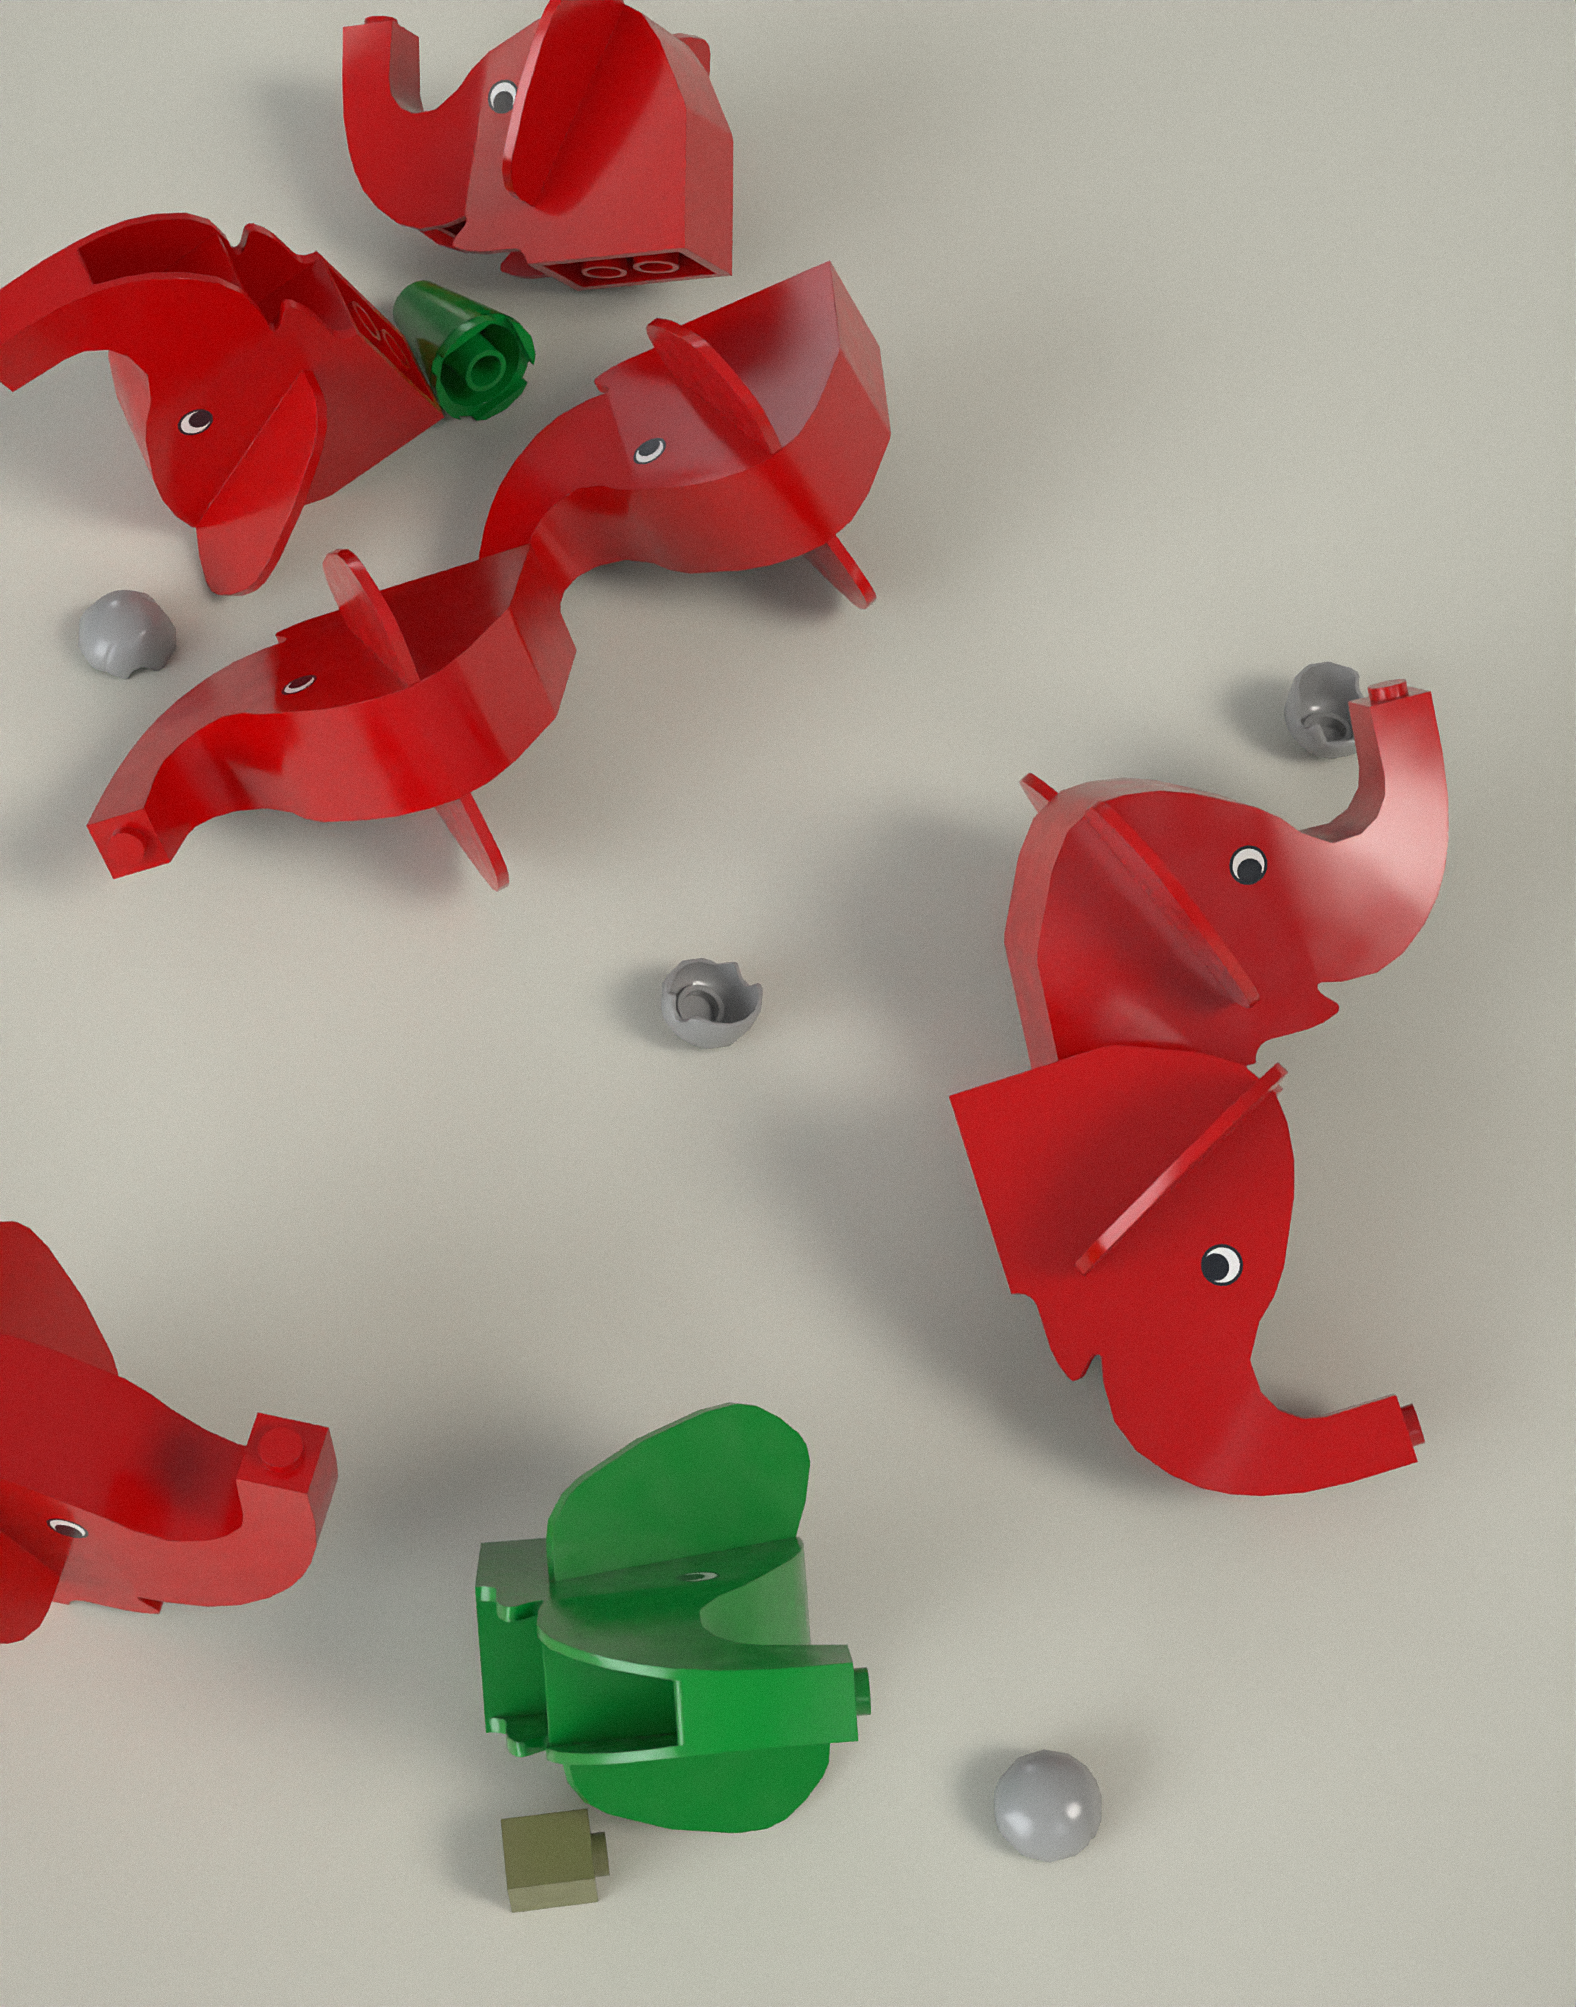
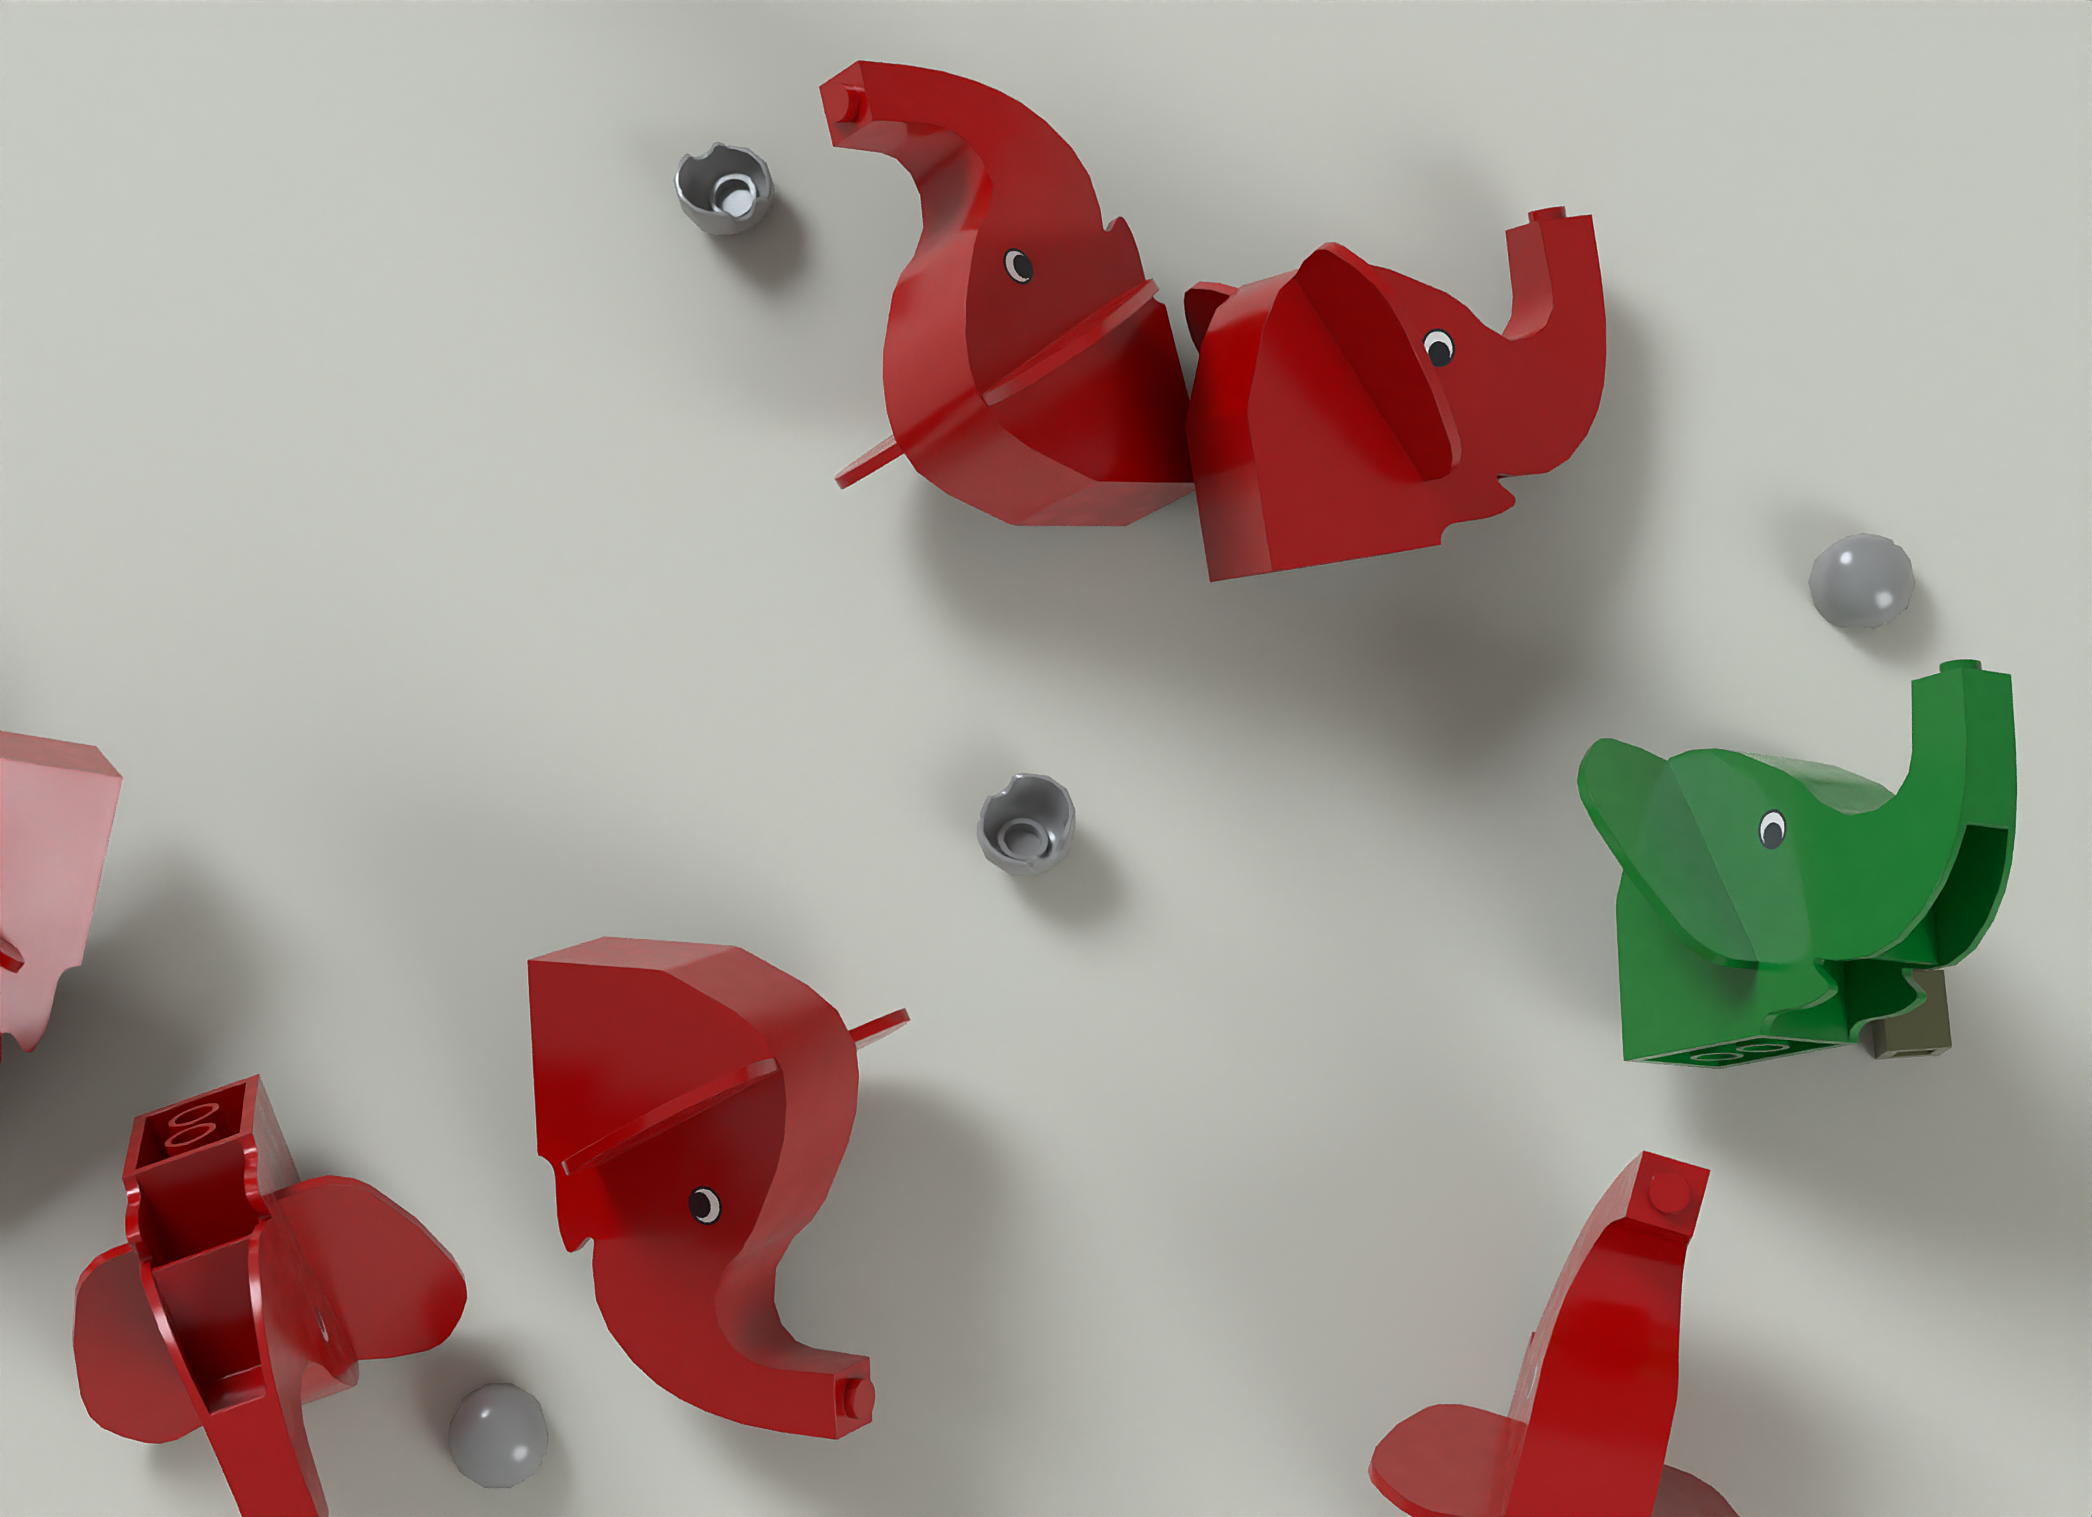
camera: 85 degrees left, 20 degrees up
(464, 349) = (140, 1060): green cone -> none
(713, 447) = (373, 766): red animal -> none

